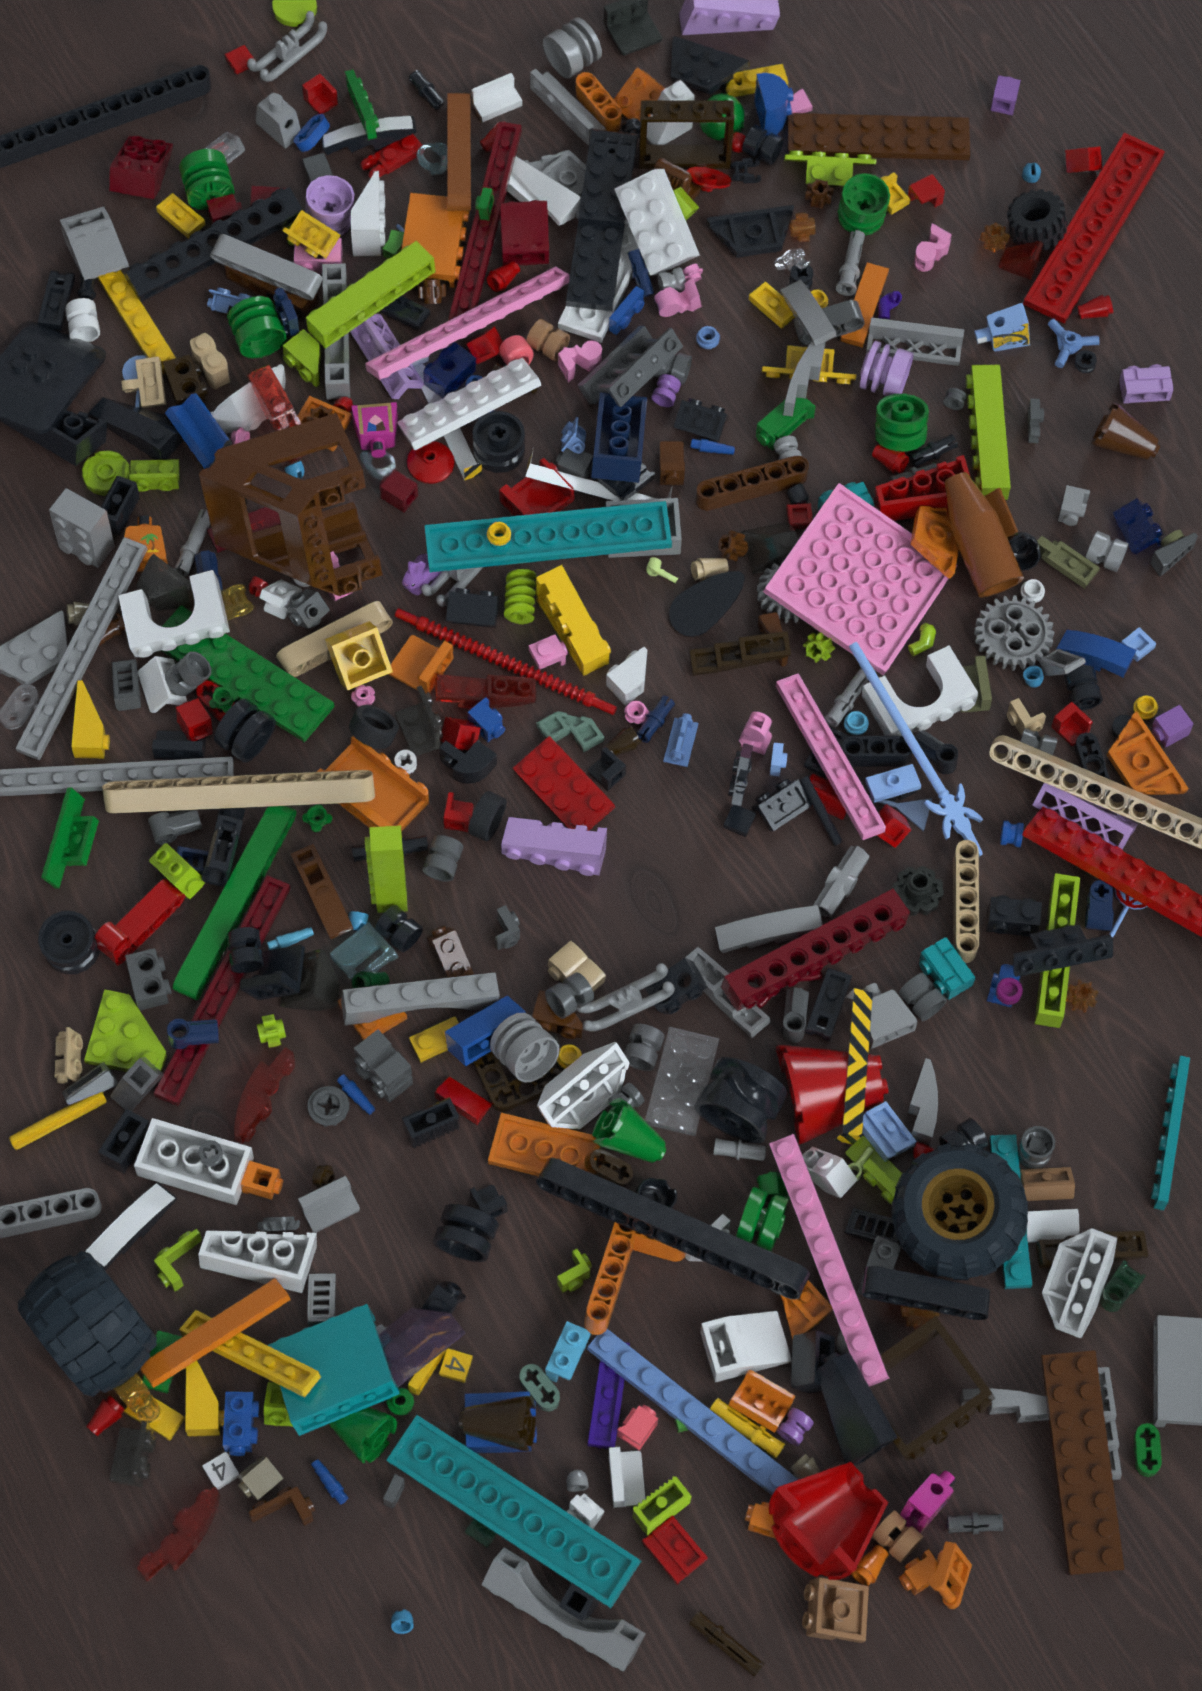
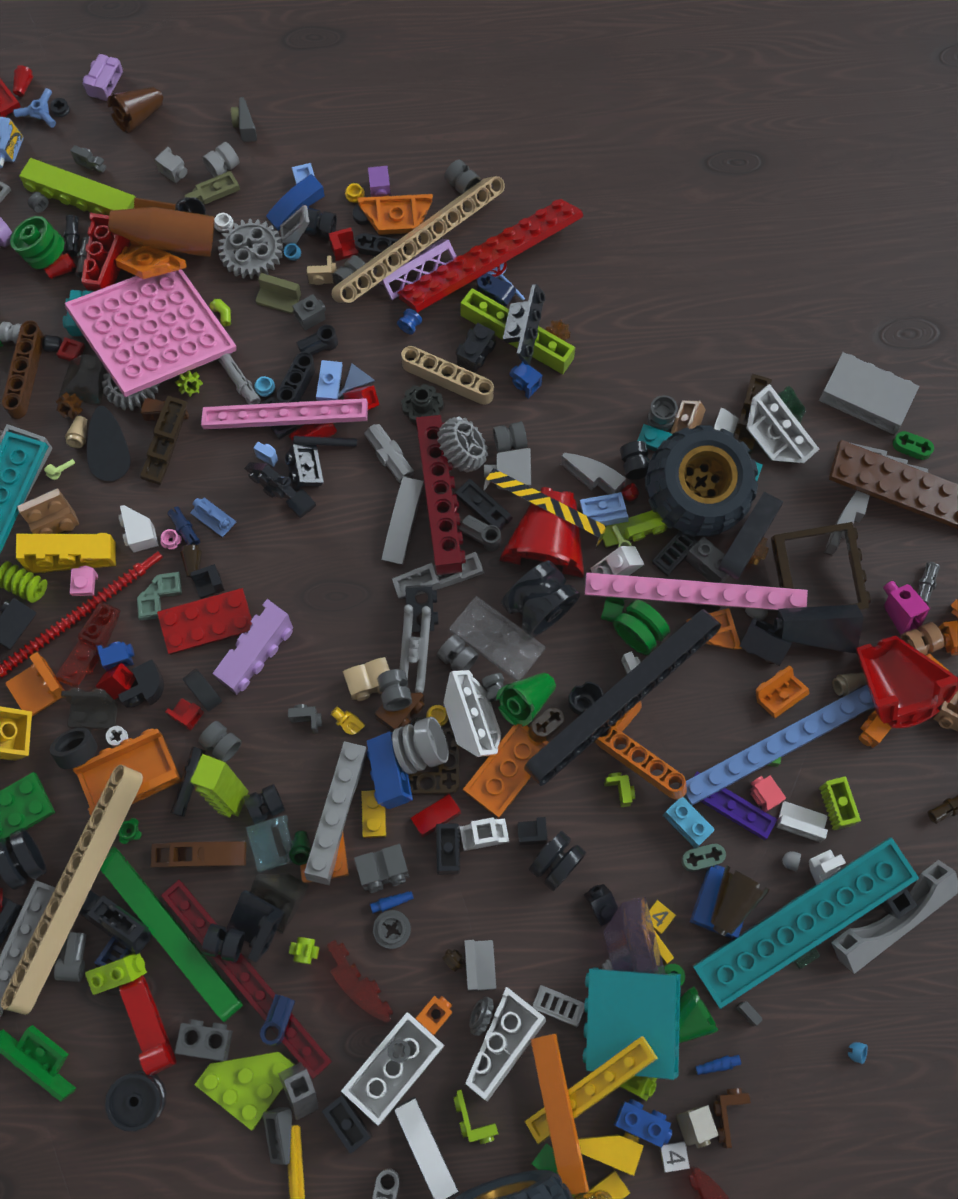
camera: 65 degrees left, 5 degrees up
(68, 1045) = (232, 1138): tan hinge -> none
(290, 938) = (226, 900): medium azure animal -> none
(358, 919) = (239, 835): dark azure hinge -> none
(367, 700) = (44, 746): bright pink plate -> none
(450, 952) = (305, 770): bracket -> none
(464, 1154) = (484, 833): none -> white brick
(522, 971) = (350, 723): none -> yellow piece
(601, 586) = (49, 514): none -> medium nougat plate
(674, 1550) = (877, 808): red plate -> none
(739, 1149) = (571, 621): light grey axle -> none
(744, 1343) = (732, 686): white slope -> none
(747, 1428) = (802, 709): yellow pin -> none
(757, 732) = (236, 457): bright pink leg -> none
(795, 1426) = (810, 676): medium lavender wheel -> none
(879, 942) = (462, 444): none -> light grey gear
(946, 968) = (494, 411): teal brick -> none
(952, 810) = (368, 351): light blue piece -> none
(955, 690) = (277, 355): white arch -> none
(968, 727) = (309, 312): none -> dark grey brick
(1009, 991) = (536, 375): magenta tile -> none
(1138, 525) = (210, 133): clear blue bracket -> none
(1168, 1142) = (691, 325): teal plate -> none

